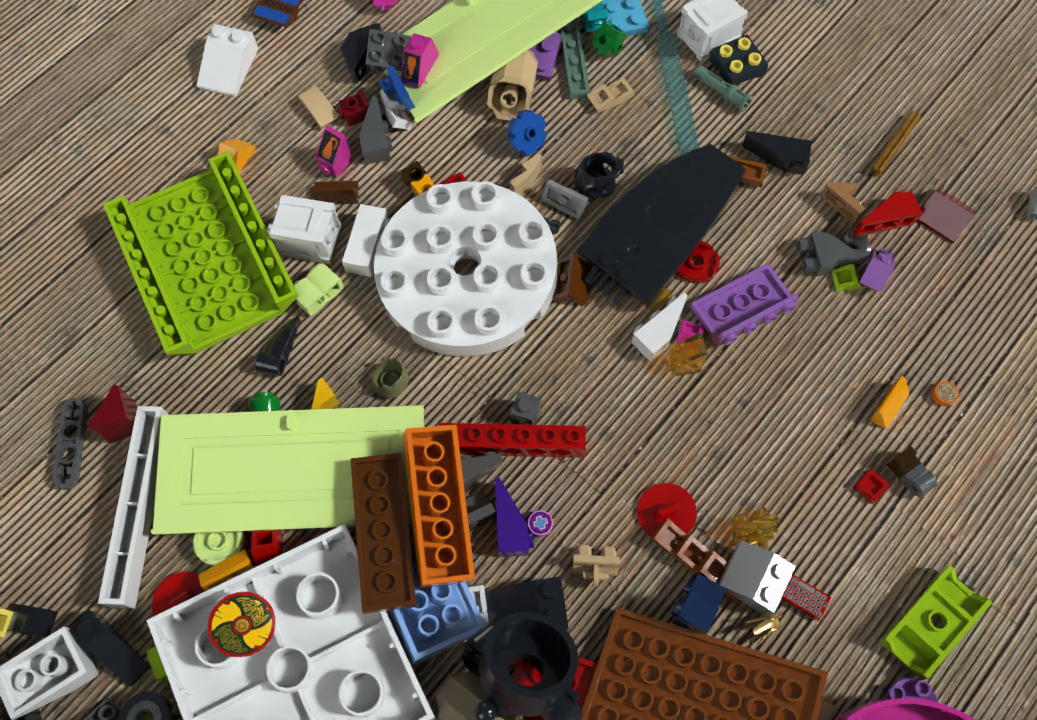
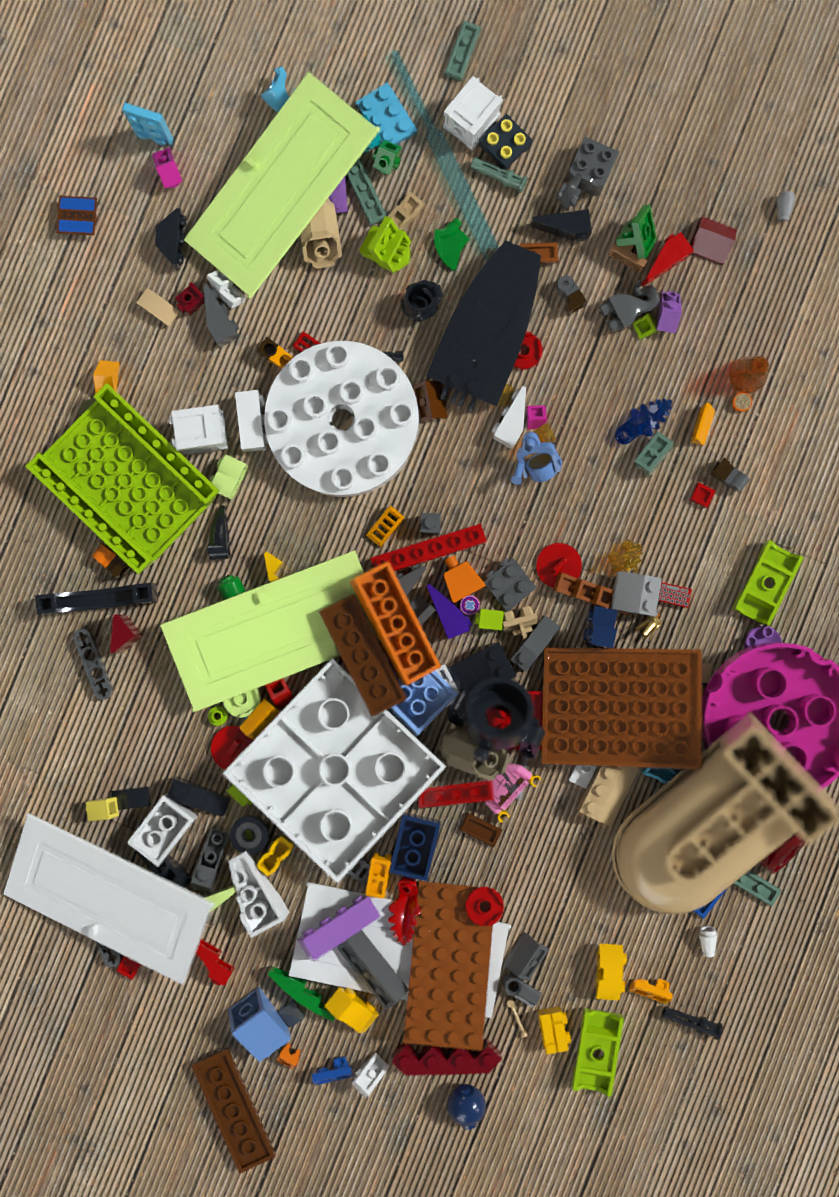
camera: 25 degrees left, 20 degrees up
(133, 513) = (169, 694): white brick -> none
(144, 377) = (96, 599): none -> black arch
(146, 336) = (110, 561): none -> leg
(188, 556) = (223, 713): none -> lime plate
(226, 59) = (56, 287): white slope -> none
(241, 624) = (292, 754): shield -> none
(333, 152) = (191, 352): dark pink slope -> none
(336, 192) = (207, 384): reddish brown panel -> none
(385, 50) = (199, 236): dark grey hinge -> none
(389, 378) = (316, 532): olive hair -> none
(393, 83) = (217, 268): blue hinge -> none
(418, 59) = (231, 240): dark pink slope -> none
(468, 391) = (395, 513): none -> light orange slope
(527, 132) = (347, 277): blue plant -> none
(530, 171) = (362, 313): tan slope -> none
(540, 488) = (461, 579): none -> orange torso
(558, 548) = (489, 619): none -> lime brick
(564, 199) = (399, 329): light grey plate -> none
(580, 116) = (387, 246): none -> lime piece
(597, 513) = (509, 584): none -> dark grey plate
(605, 598) = (535, 643): none -> dark grey slope
(649, 135) = (450, 243): none -> green arm
(678, 386) = (540, 466): none -> medium blue piece
(744, 305) = (571, 378): medium lavender bracket -> none
(769, 220) = (571, 293): none -> leg
(818, 377) = (643, 421): none -> clear blue plant
(820, 108) = (587, 172): none -> dark grey brick
(822, 416) = (654, 454): none -> sand green hinge
(866, 176) = (639, 232): none -> green bracket
(895, 143) = (659, 178): pearl gold axle -> none
(963, 361) = (749, 374): none -> clear orange cone

